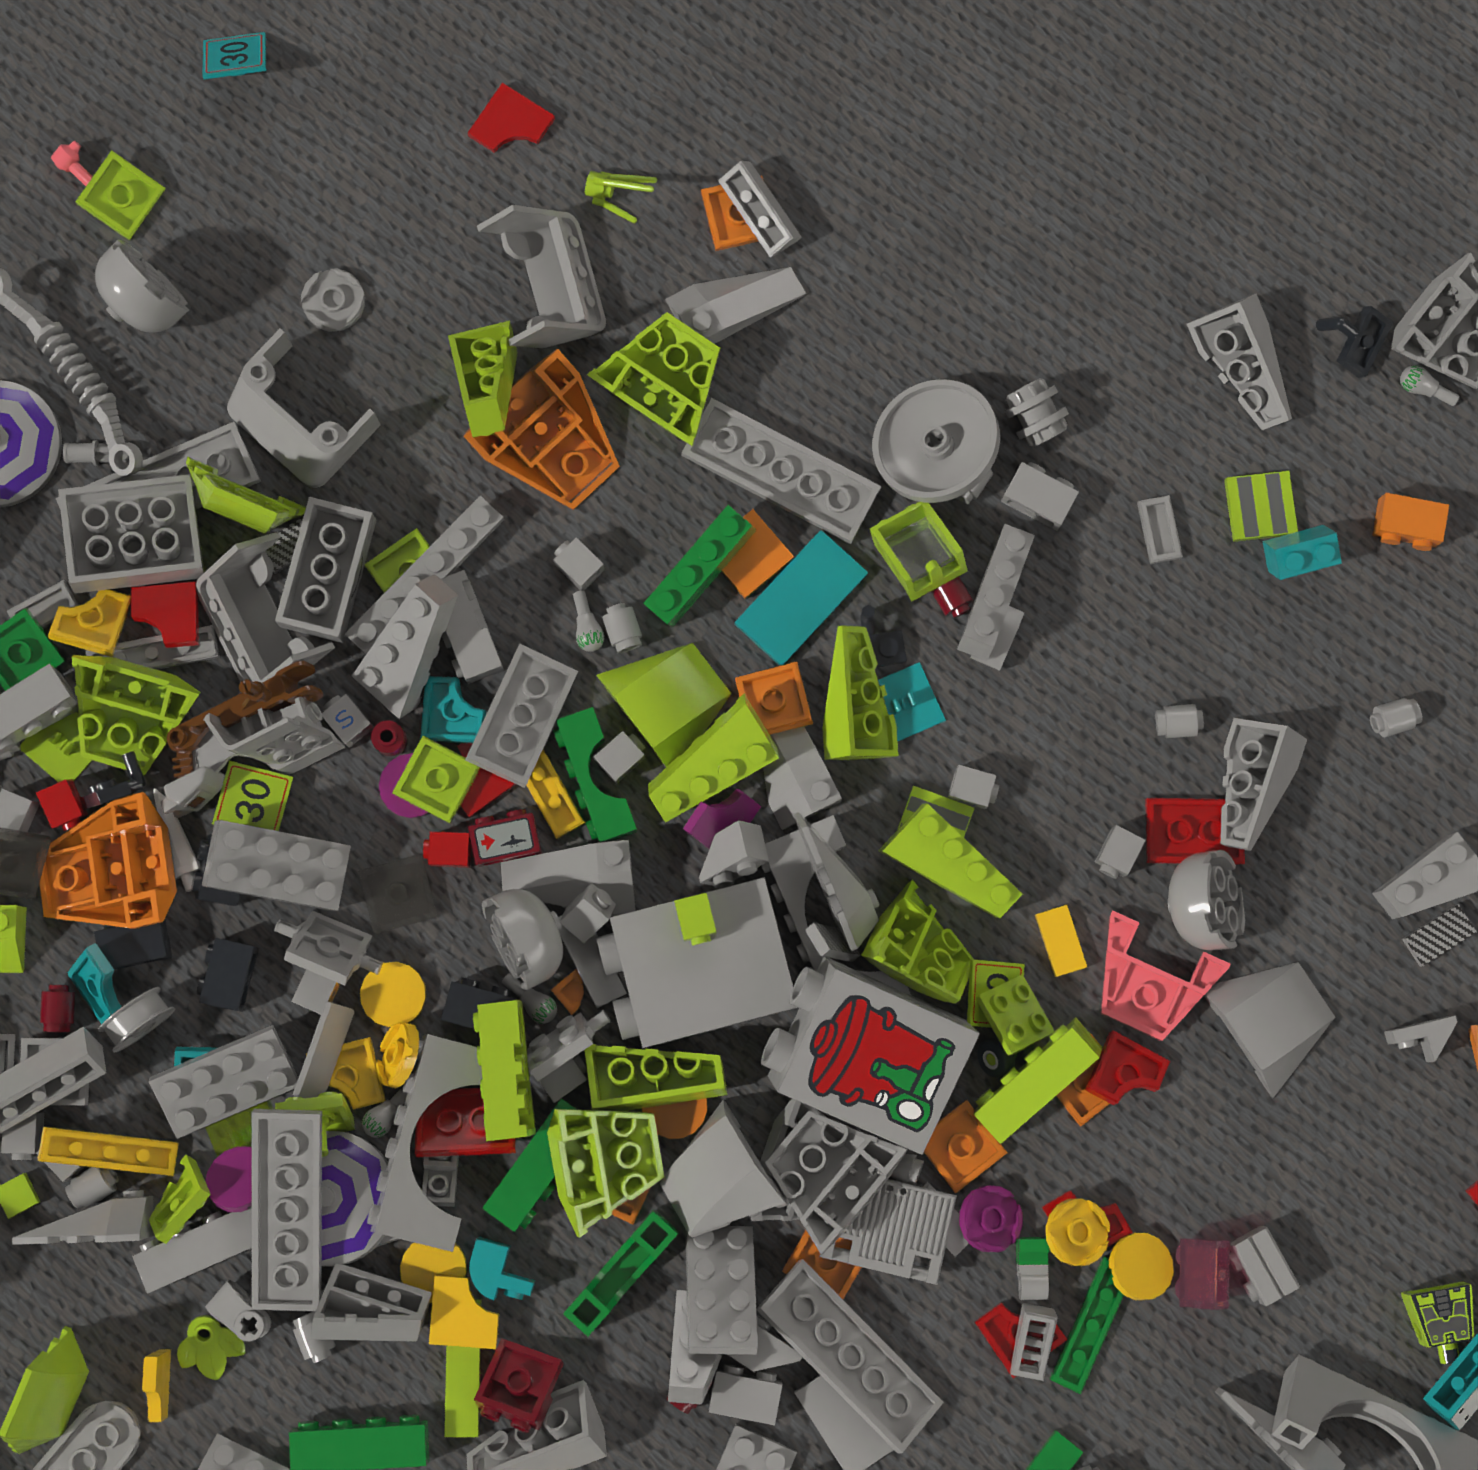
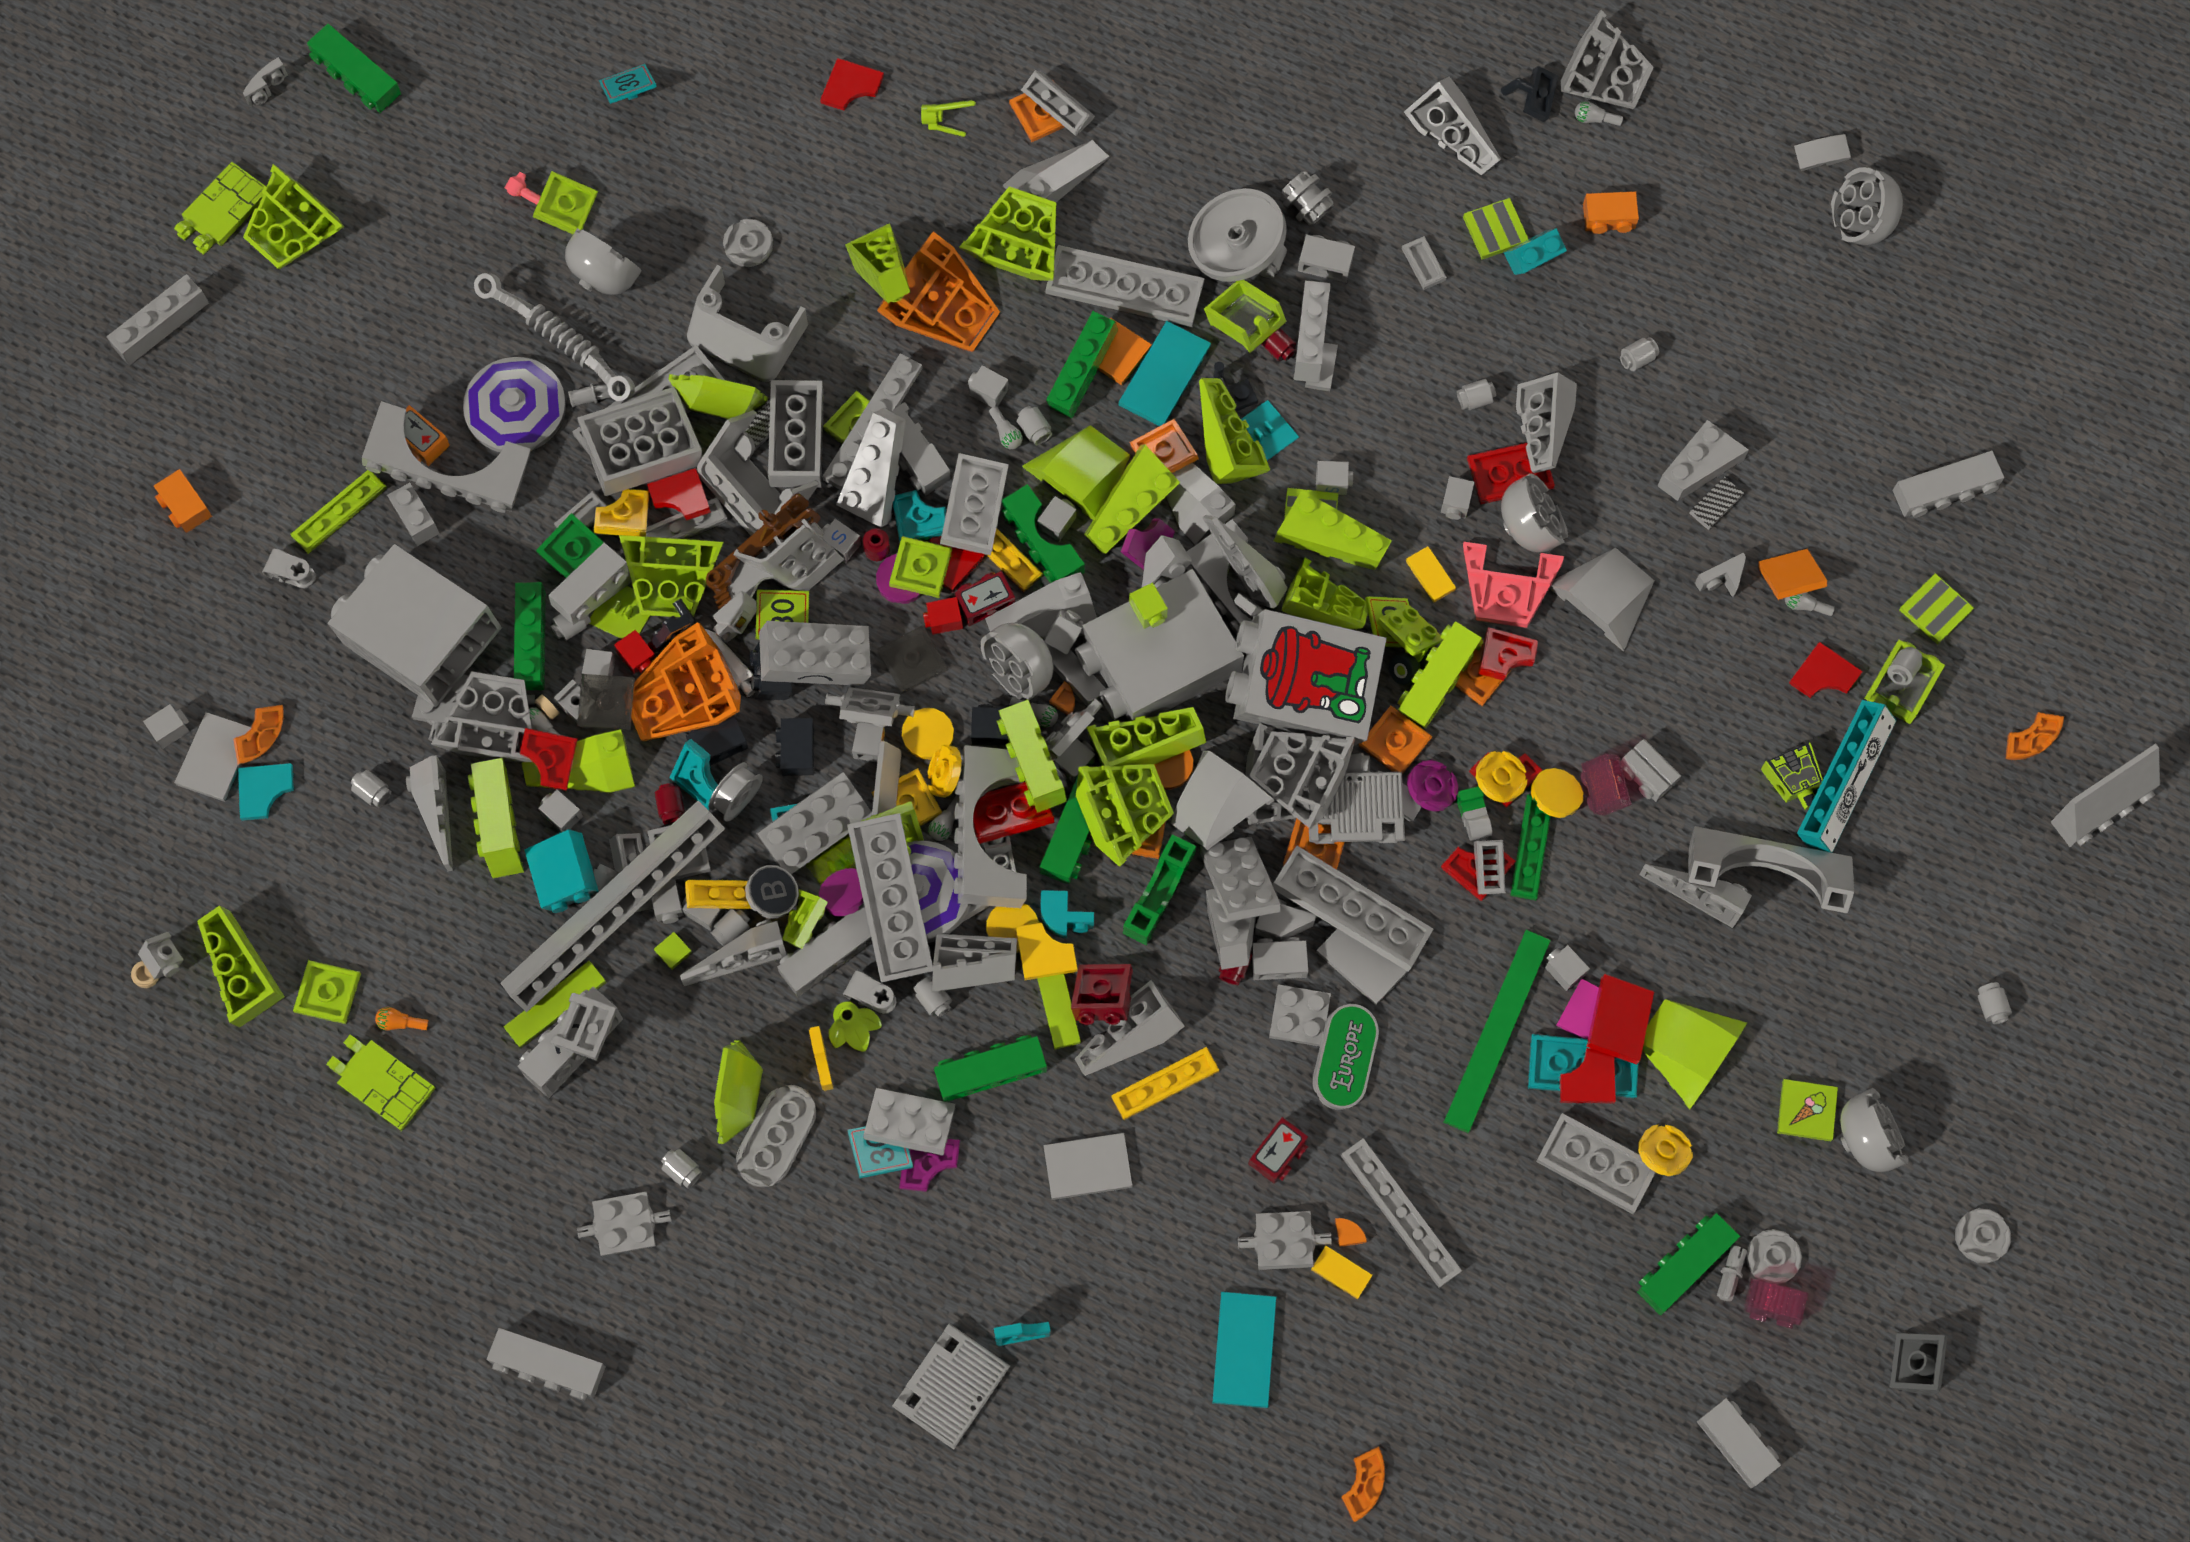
camera: 10 degrees left, 10 degrees down
(149, 1157) = (771, 891): none -> black tile
(557, 272) = (914, 182): light grey windscreen -> none

